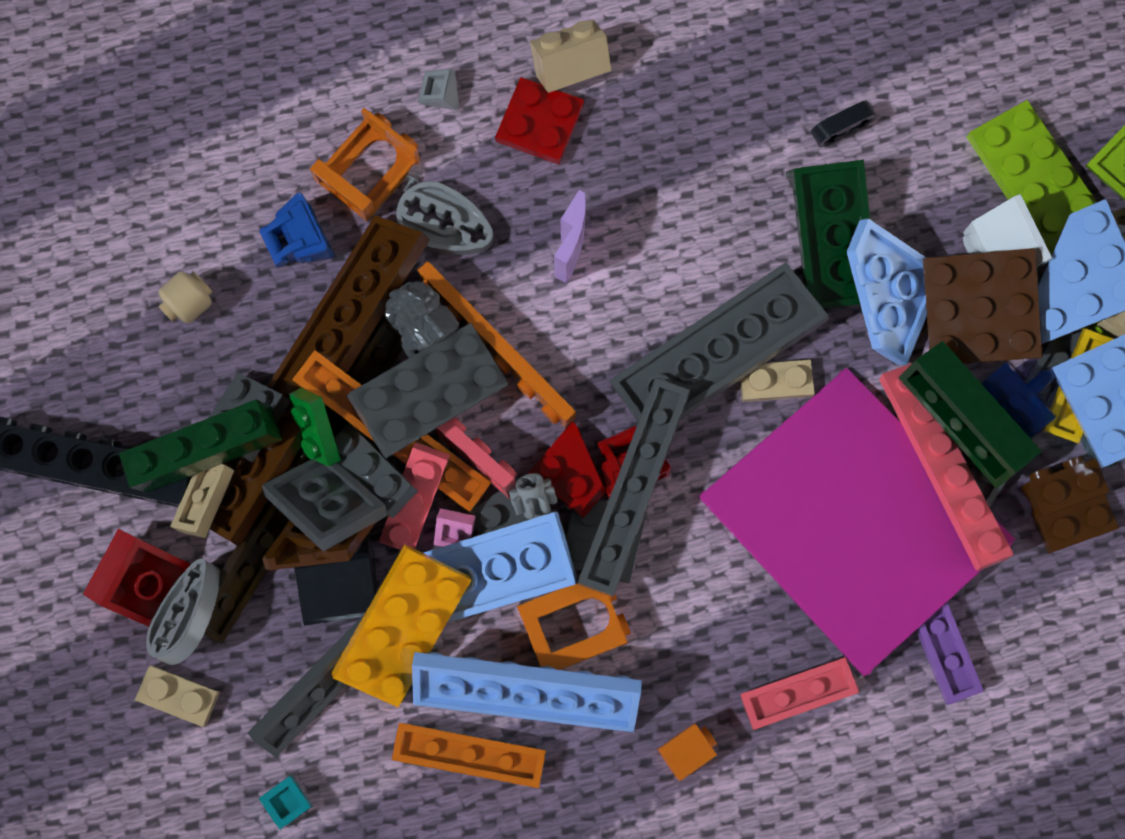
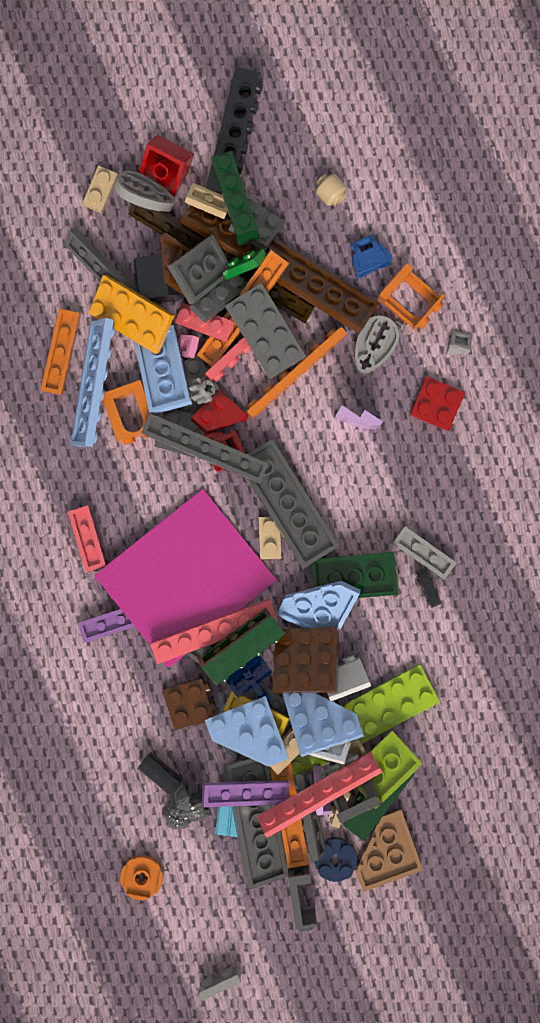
camera: 90 degrees right, 10 degrees up
(285, 802) = (39, 250): teal plate -> none
(419, 317) = (310, 327): dark grey hair -> none
(570, 55) = (476, 422): tan brick -> none
(688, 750) = (57, 474): orange brick -> none
(786, 132) = (424, 553): none -> light grey plate

